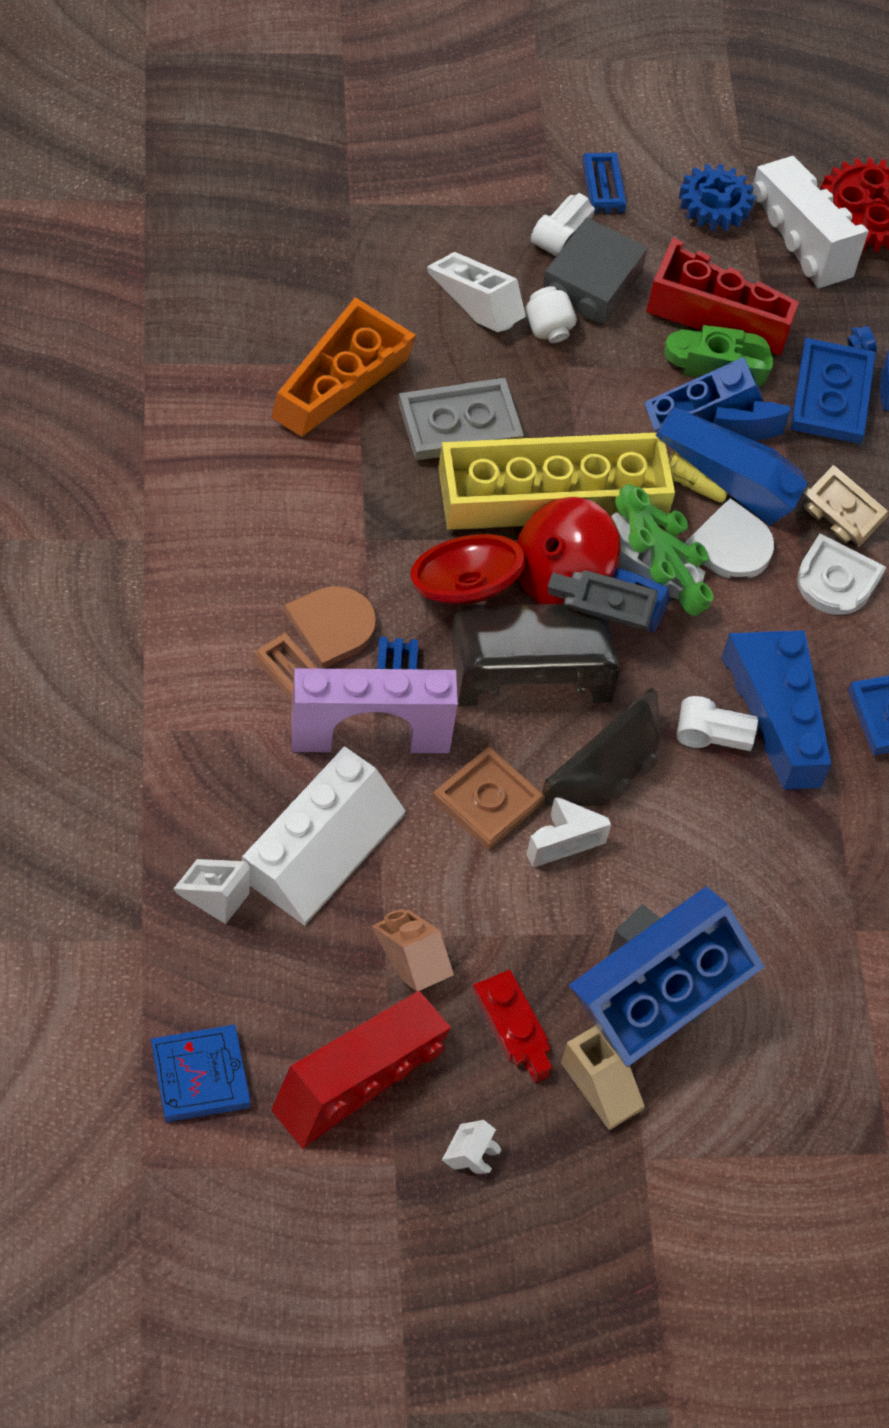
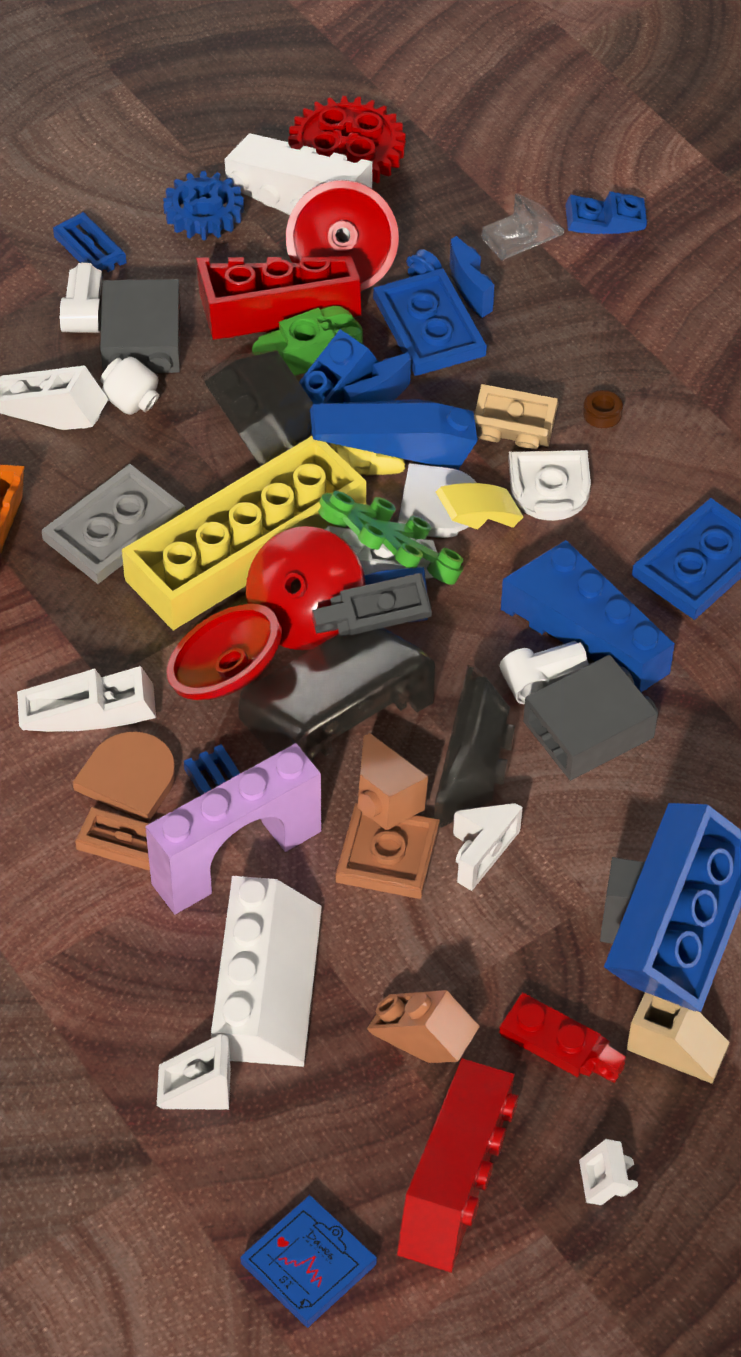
camera: 25 degrees left, 5 degrees down
(340, 549) = (88, 702): none -> white slope
(519, 745) = (389, 785): none -> nougat slope
(641, 383) = (262, 402): none -> clear smoke wedge
(726, 785) = (590, 717): none -> dark grey brick
(757, 559) = (477, 502): none -> light yellow slope
(807, 251) = (349, 206): none -> red dish

